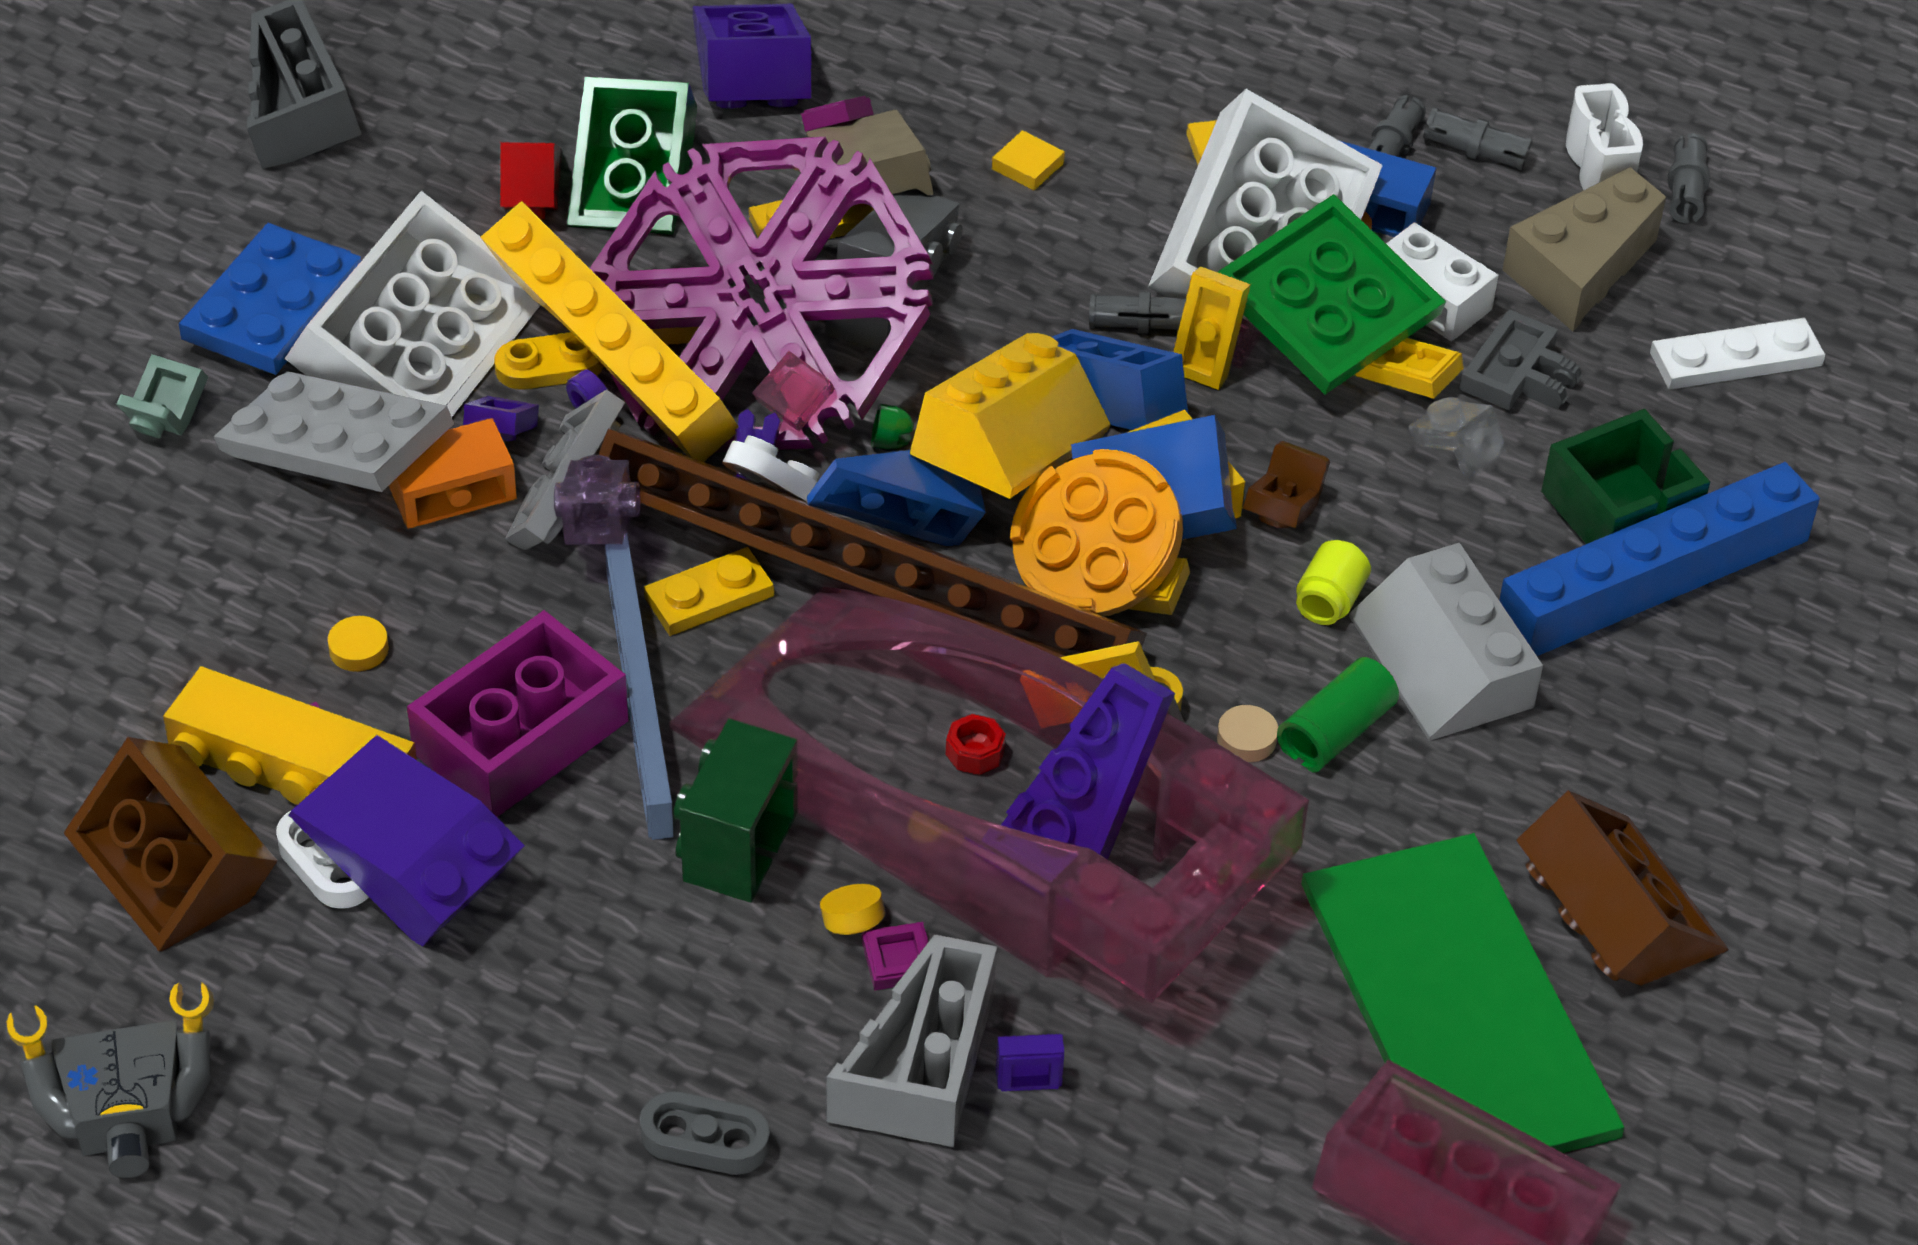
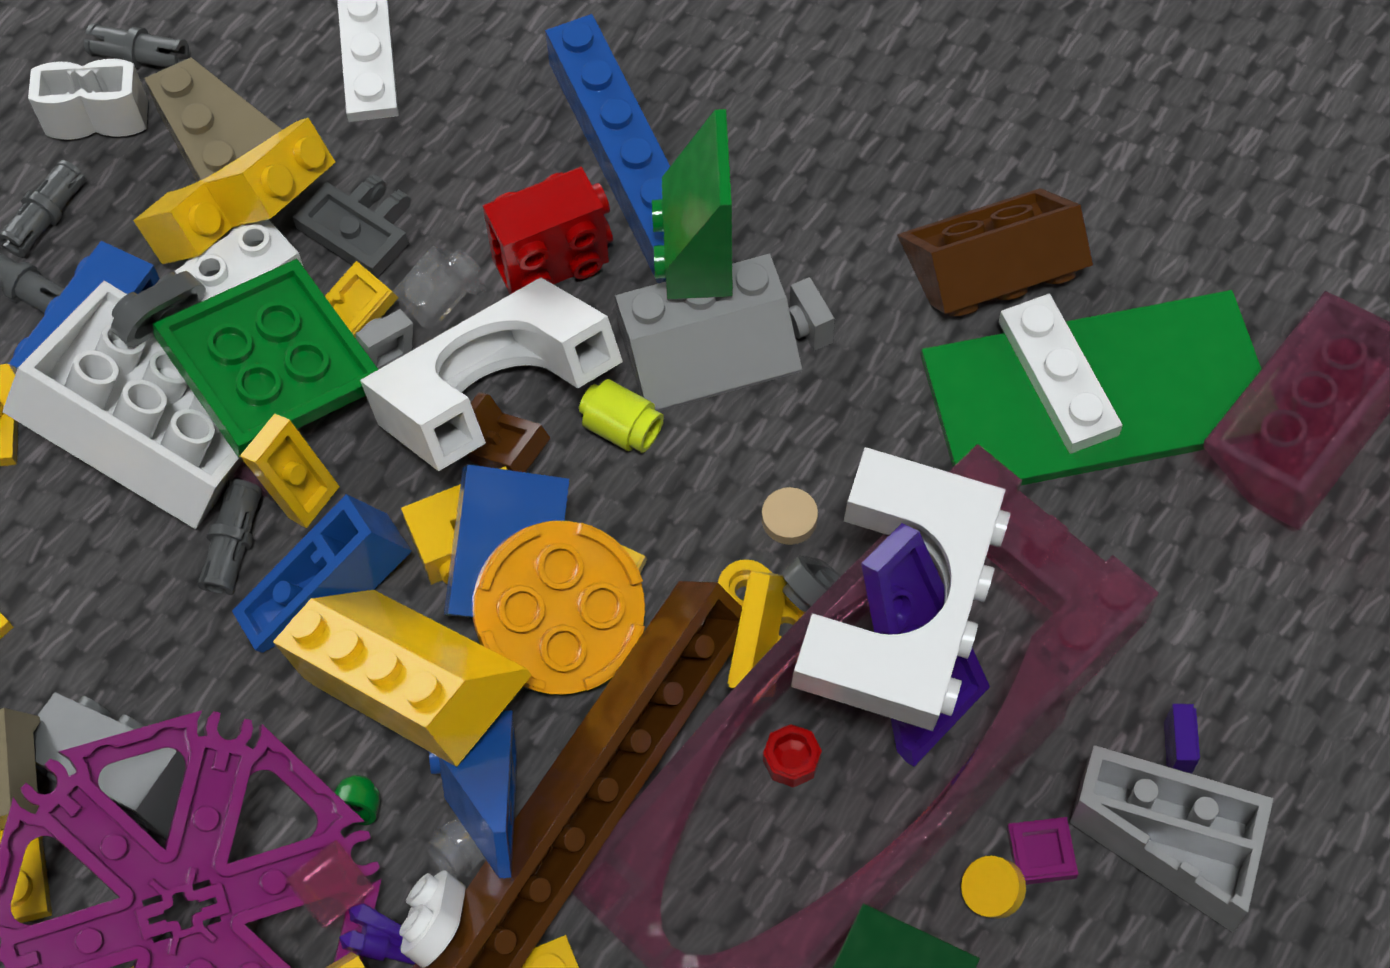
camera: 80 degrees left, 15 degrees up
(1179, 759) = (911, 671): none -> white arch
(1338, 713) = (783, 433): green pin -> none
(1342, 177) = (137, 312): none -> dark grey plate
(1375, 390) = (387, 338): none -> light grey plate
(1404, 491) = (537, 325): none -> white arch
(1464, 950) = (1060, 373): none -> white plate
(1492, 728) = (810, 314): none -> light grey plate
(1516, 252) = (239, 194): none -> yellow arch
(1525, 488) = (549, 230): none -> red brick
(1537, 558) = (697, 217): none -> green slope
(1616, 475) = (560, 144): dark green piece -> none

